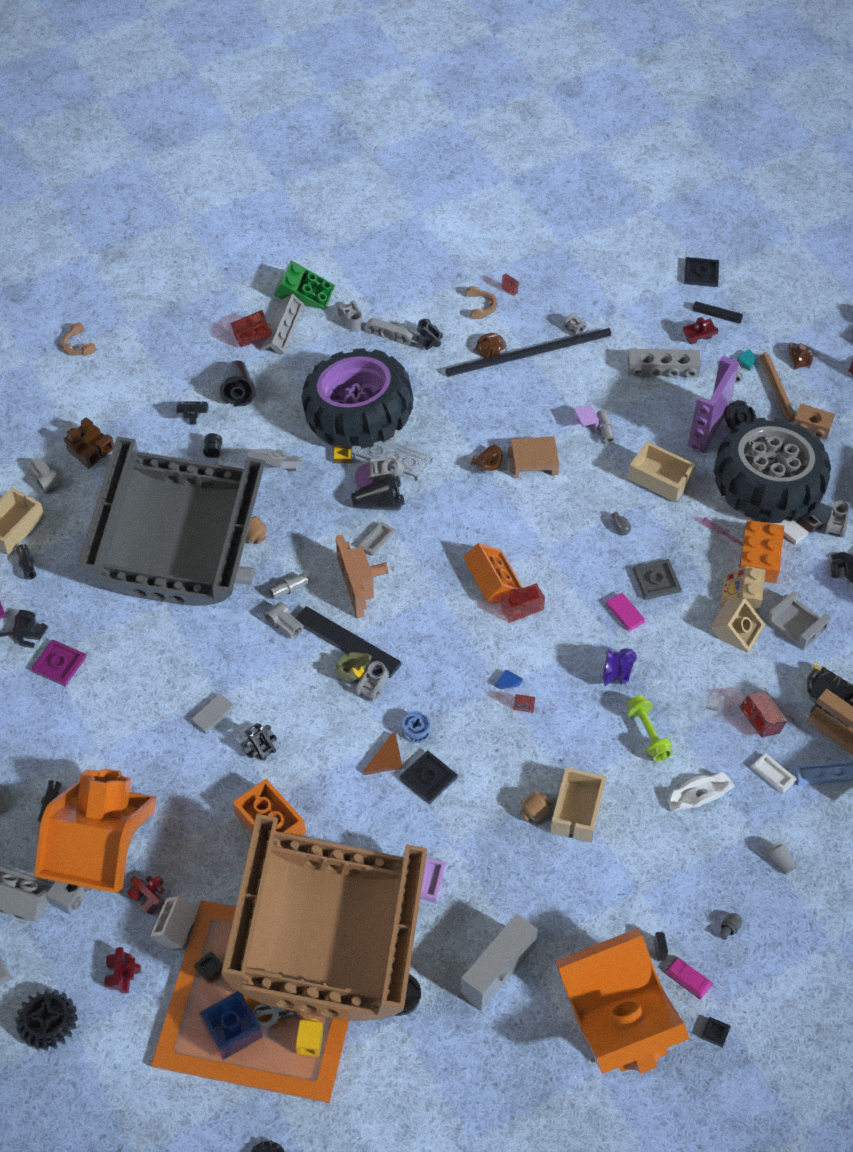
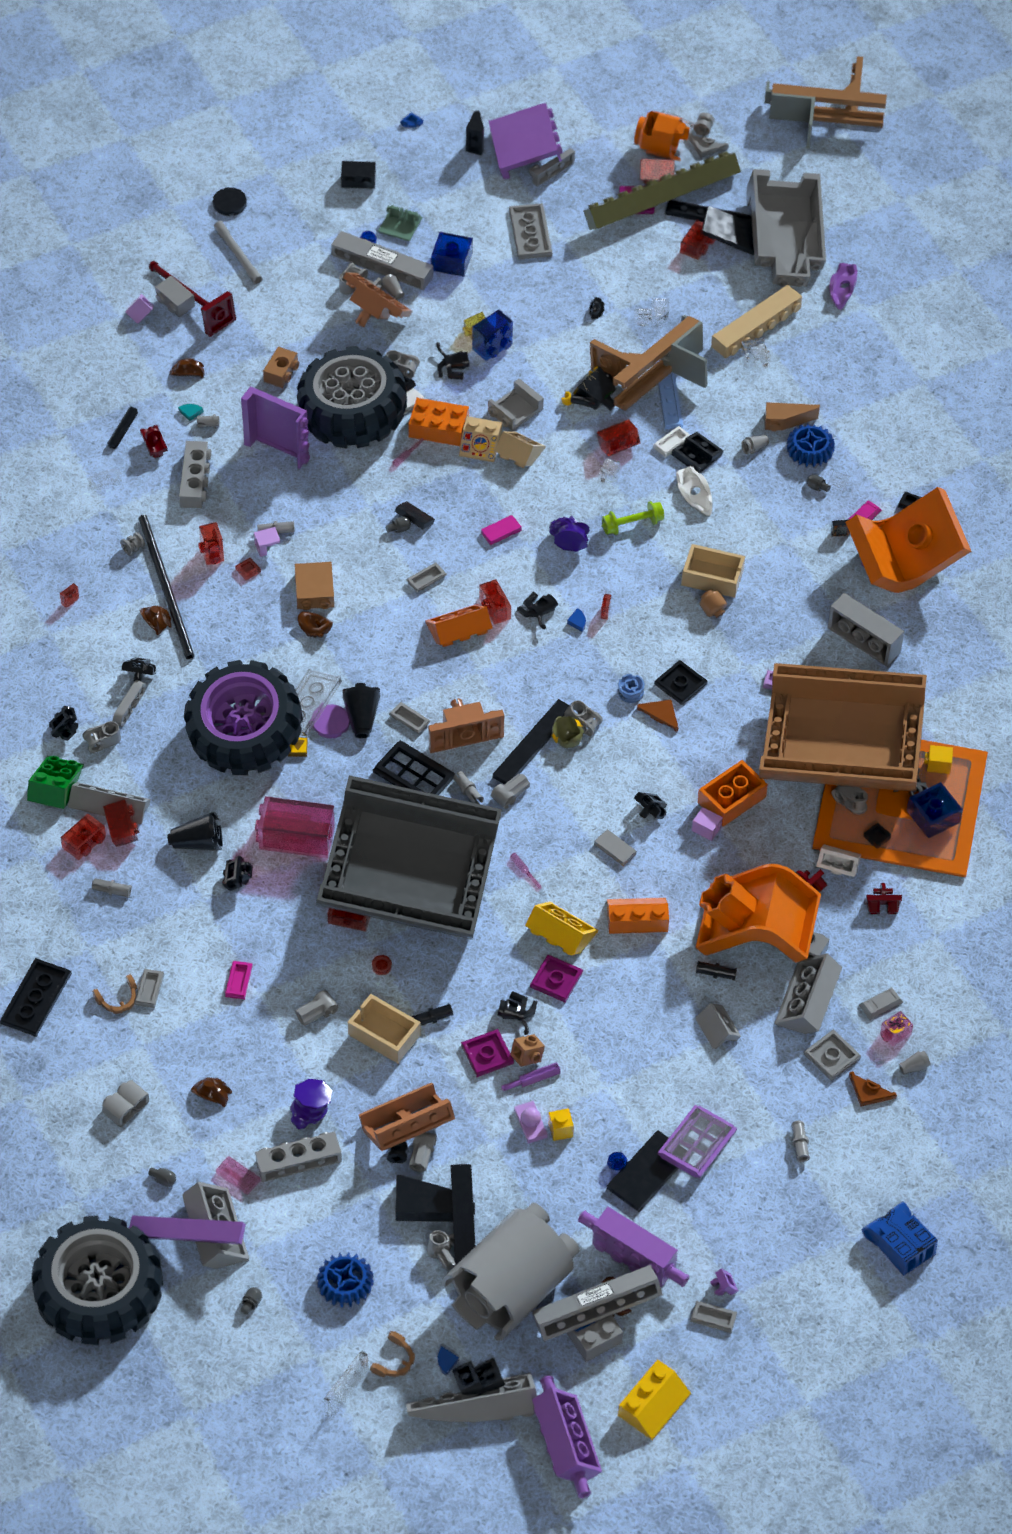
camera: 90 degrees left, 0 degrees up
(63, 1020) = (940, 947): black gear -> none
(74, 420) = (238, 980): none -> dark pink tile
(83, 291) = (35, 997): none -> black tile
(83, 362) = (149, 988): none -> light grey tile
(85, 523) = (381, 965): none -> clear red tile
(88, 443) = (277, 968): reddish brown hips -> none
(115, 664) = (560, 928): none -> yellow slope
(126, 730) = (638, 915): none -> orange slope
(189, 331) = (111, 887): none -> light grey axle
(192, 635) = (523, 867): none -> clear pink piece
(212, 445) = (281, 859): black wheel -> none
(231, 792) = (707, 824): none -> lavender panel
(236, 436) = (295, 827): none -> clear pink brick
(239, 305) = (83, 837): none -> clear red brick
(277, 458) = (325, 783): light grey tile -> none
(294, 537) = (419, 757): none -> black piece
(369, 287) = (64, 723): none -> black piece
(381, 467) = (332, 704): light grey piece -> none
(474, 291) = (89, 613): medium nougat piece -> none
(519, 643) = (542, 606): none -> black piece
(555, 410) = (248, 569): none -> clear red tile
(555, 548) = (426, 577): none -> light grey tile
(573, 373) = (211, 543): none -> clear red brick
(634, 536) = (415, 515): none -> black tile
(656, 579) = (464, 504): dark grey tile -> none
(661, 471) = (341, 486): tan piece -> none
(701, 272) = (61, 436): black tile -> none
(760, 798) = (697, 452): none -> black slope
(777, 387) = (227, 391): medium nougat axle -> none
(801, 911) = (810, 445): none -> blue gear
(828, 891) = (787, 415): none -> medium nougat slope

